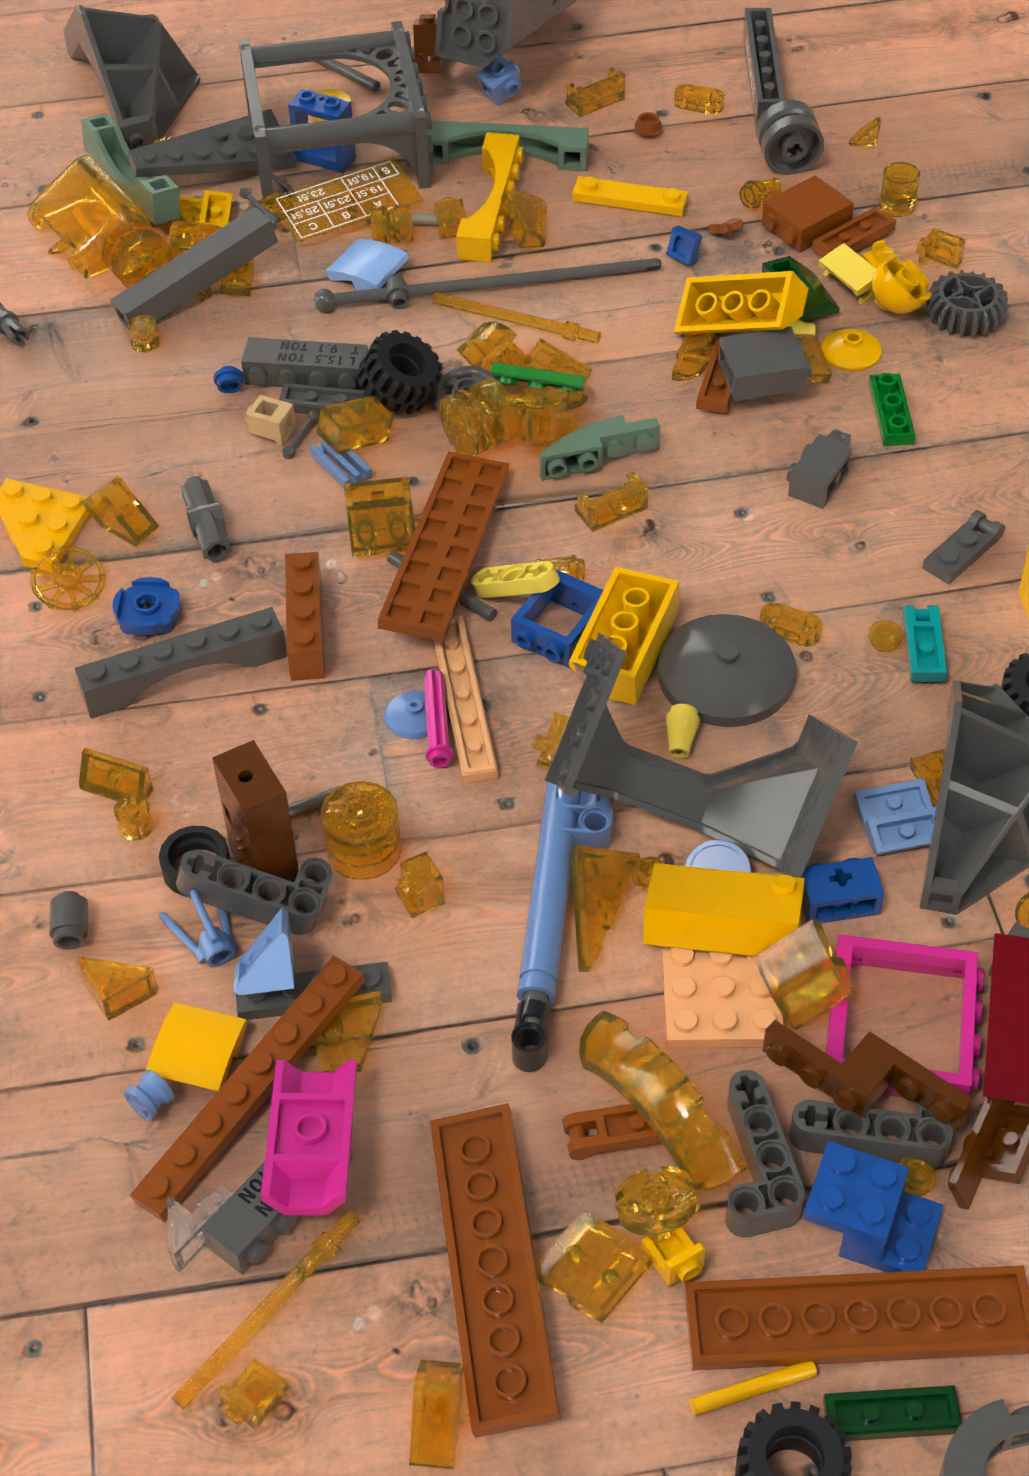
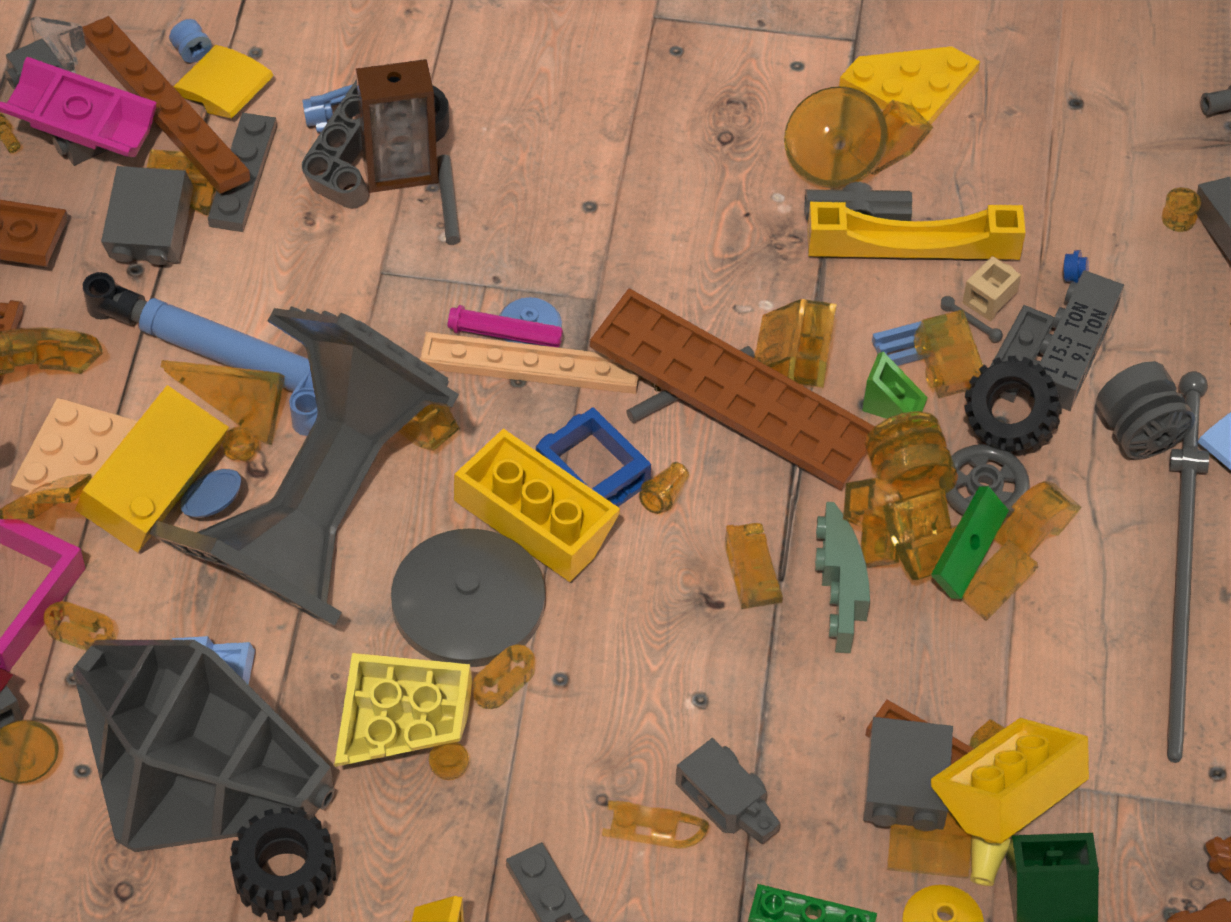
camera: 105 degrees right, 5 degrees up
(67, 578) = (812, 80): clear yellow wheel -> none
(68, 920) = (393, 21): dark grey brick -> none
(113, 776) = (541, 81): clear yellow slope -> none
(116, 984) = (311, 35): clear yellow slope -> none
(117, 680) = (659, 147): dark grey arch -> none
(125, 813) = (482, 75): clear yellow wheel -> none
(144, 524) = (829, 118): none -> clear yellow dish
(150, 621) = (746, 154): blue plate -> none
(230, 475) = (842, 232): none -> yellow arch
(268, 961) = (268, 133): light blue slope -> none
(304, 616) = (681, 251): dark orange brick -> none
(361, 830) = (382, 227): clear yellow wheel -> none
(372, 305) = (1145, 410): none -> dark grey wheel
(404, 460) = (891, 390): none -> bright green slope
(417, 1033) = (147, 214): none -> dark grey brick
(420, 885) = (307, 252): clear yellow brick -> none
(515, 579) = (636, 439): light yellow beam -> none
(568, 330) = (1068, 615): clear yellow bar -> none
(681, 729) = (399, 523): light yellow cone -> none
(684, 245) = (1194, 792): blue tile -> none
(689, 367) = (964, 721): clear yellow tile -> none
(842, 890) = (141, 584): blue brick -> none
(867, 497) = (661, 820): none -> clear yellow piece
(869, 664) = (401, 706): none -> light yellow wedge
(910, 927) = (81, 624): none -> clear yellow beam
(924, 644) = (420, 791): teal plate -> none

